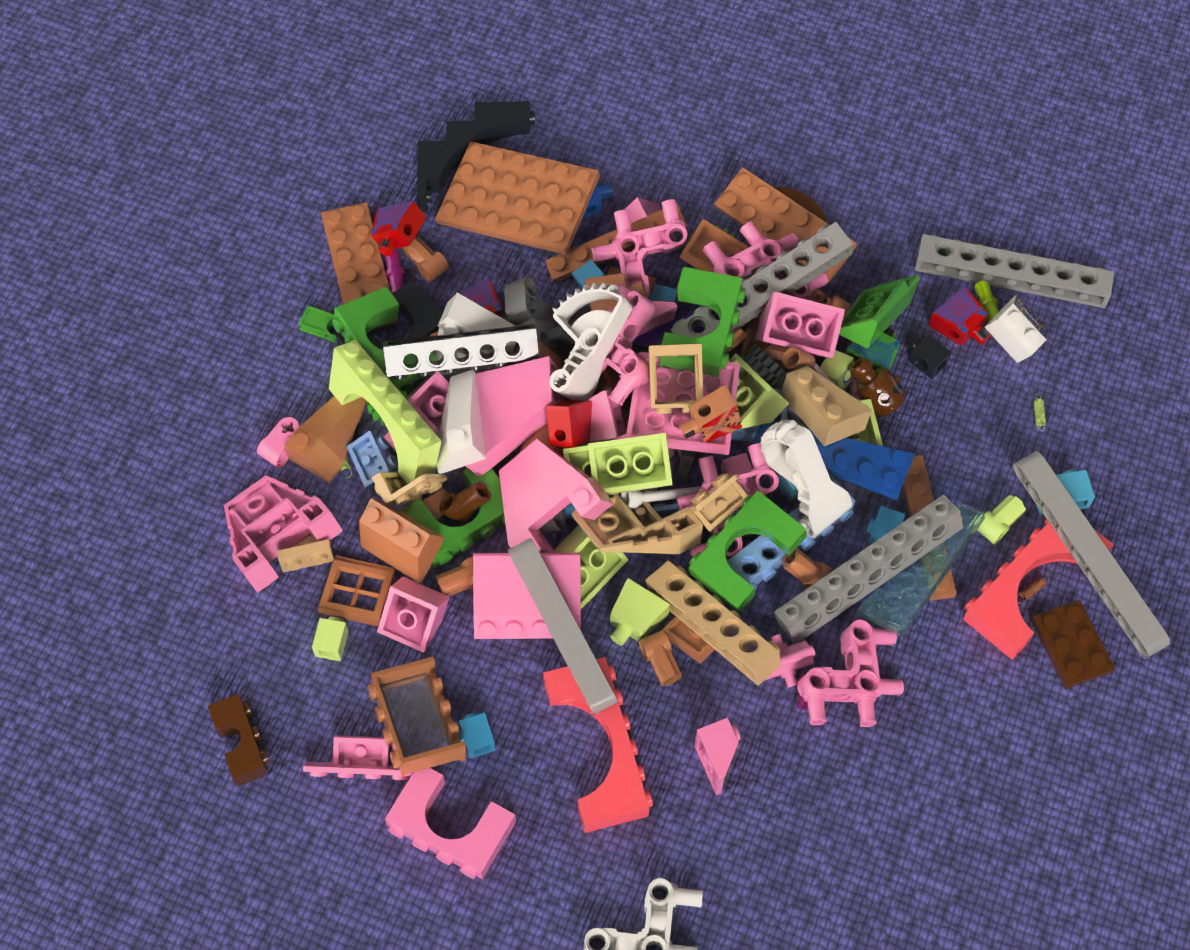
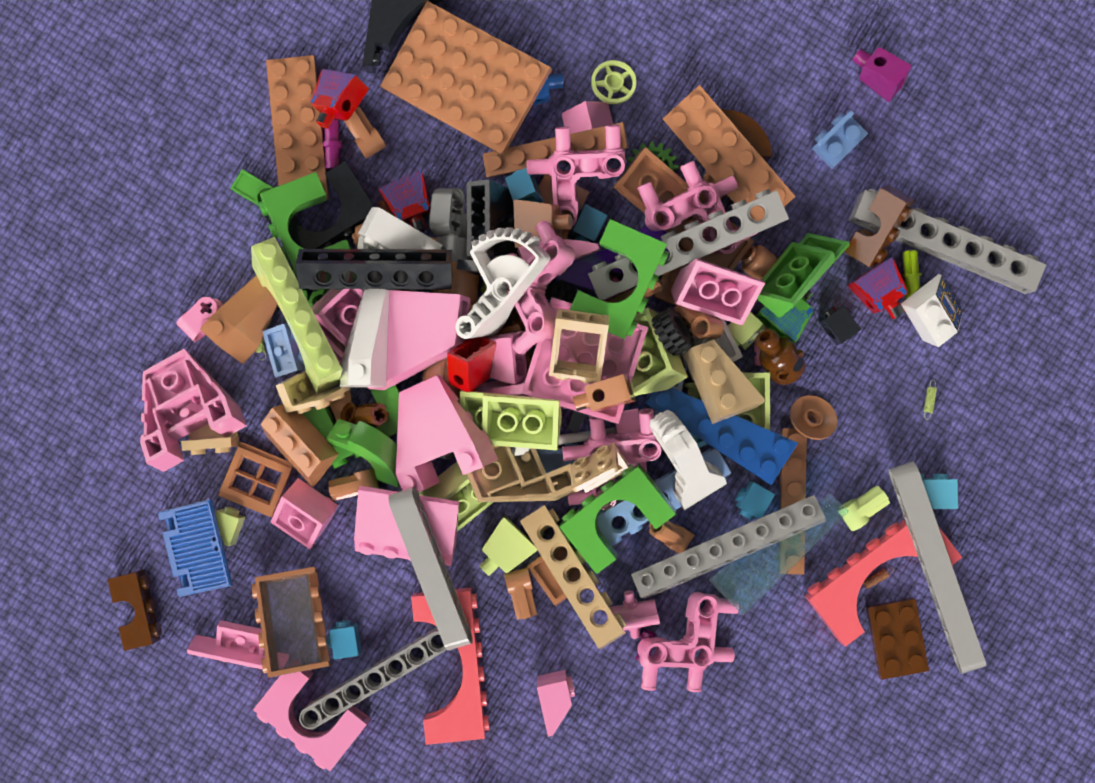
camera: 10 degrees right, 25 degrees up
(301, 660) = (193, 546): none -> window
(476, 521) = (369, 444): none -> bright green arch
(510, 781) = (367, 686): none -> light grey beam
(554, 286) = (486, 208): none -> black arch
(660, 185) = (613, 82): none -> yellowish green wheel
(886, 202) = (840, 140): none -> medium blue bracket
(913, 140) = (882, 72): none -> magenta torso
(926, 441) = (818, 411): none -> nougat dish
(943, 279) = (892, 209): none -> arch

